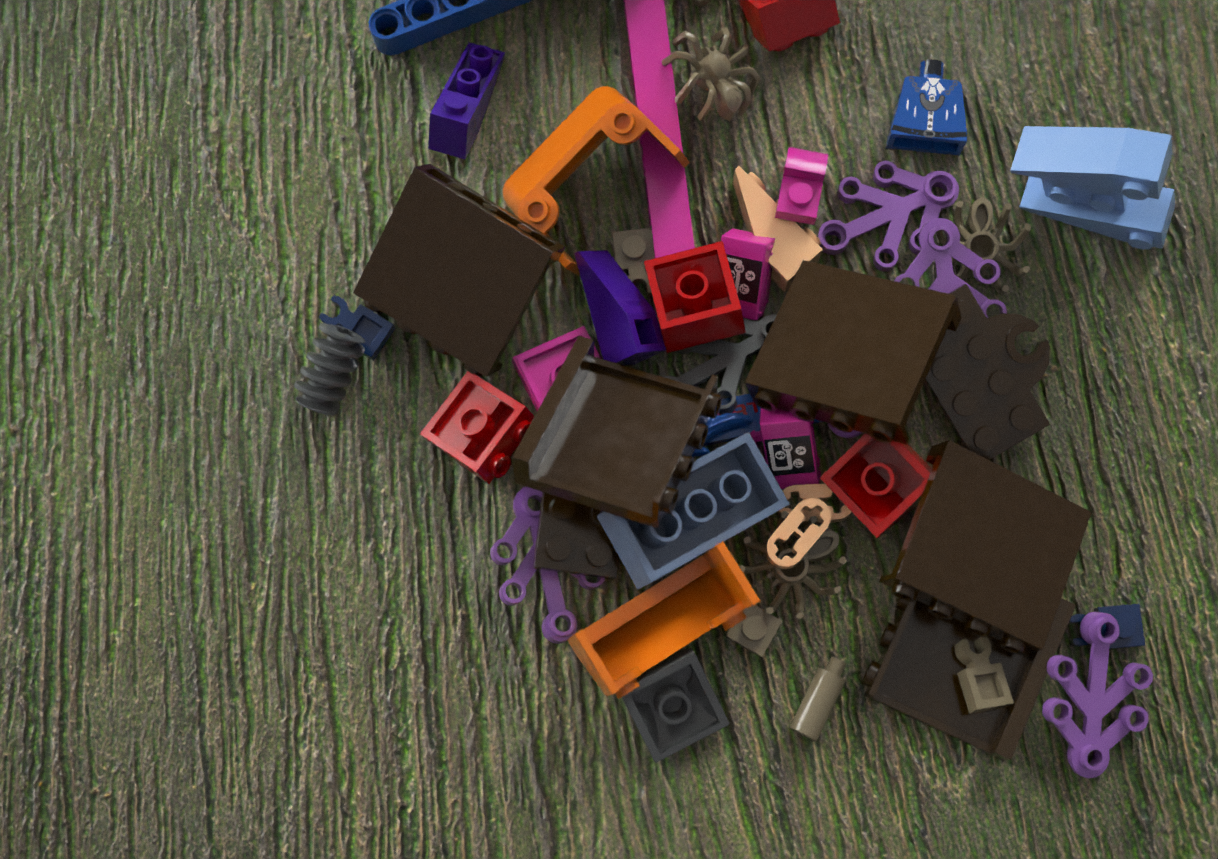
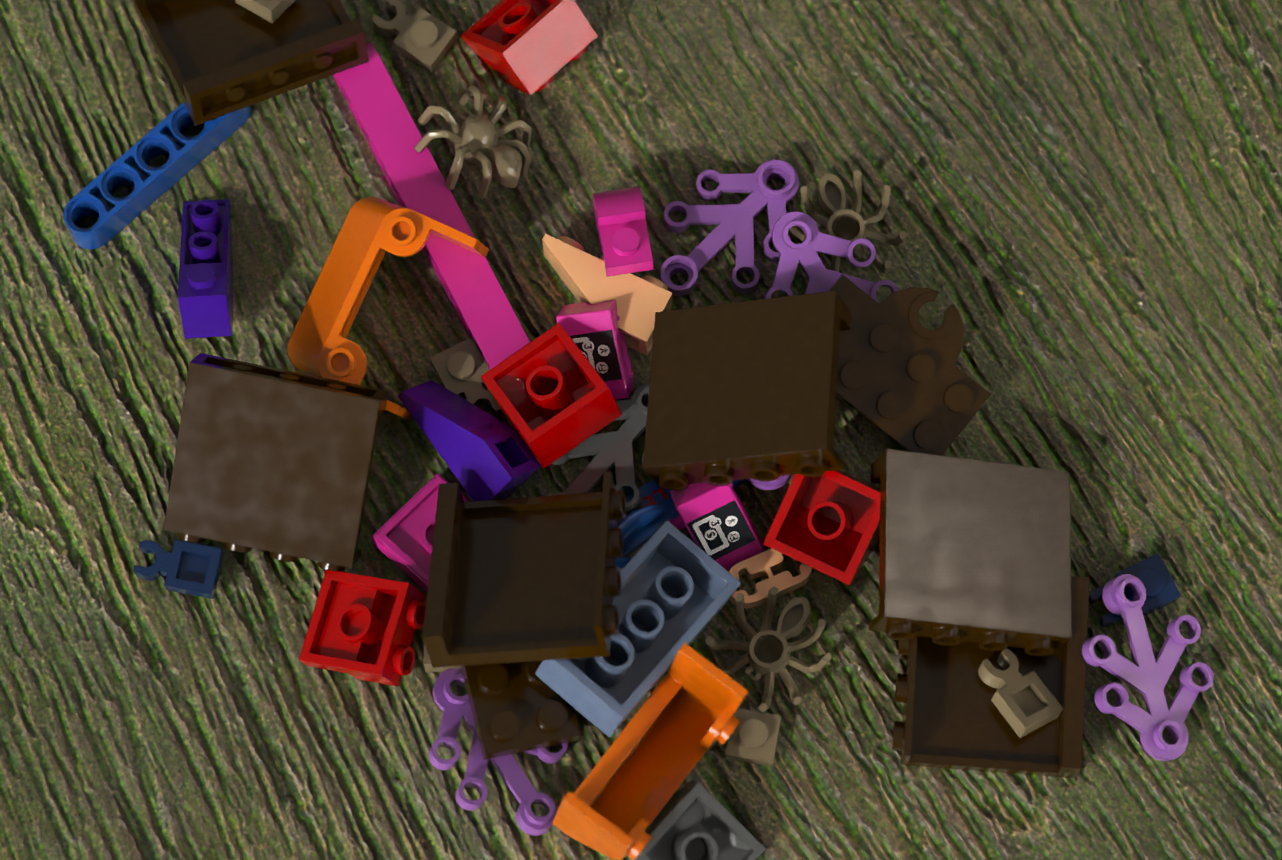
camera: 25 degrees left, 5 degrees down
(330, 370) = (171, 623): dark grey piece -> none
(806, 539) = (751, 607): light nougat beam -> none
(819, 700) = (853, 786): dark tan cylinder -> none
(929, 113) = (733, 102): blue torso -> none
(1099, 180) = (944, 113): light blue wedge -> none

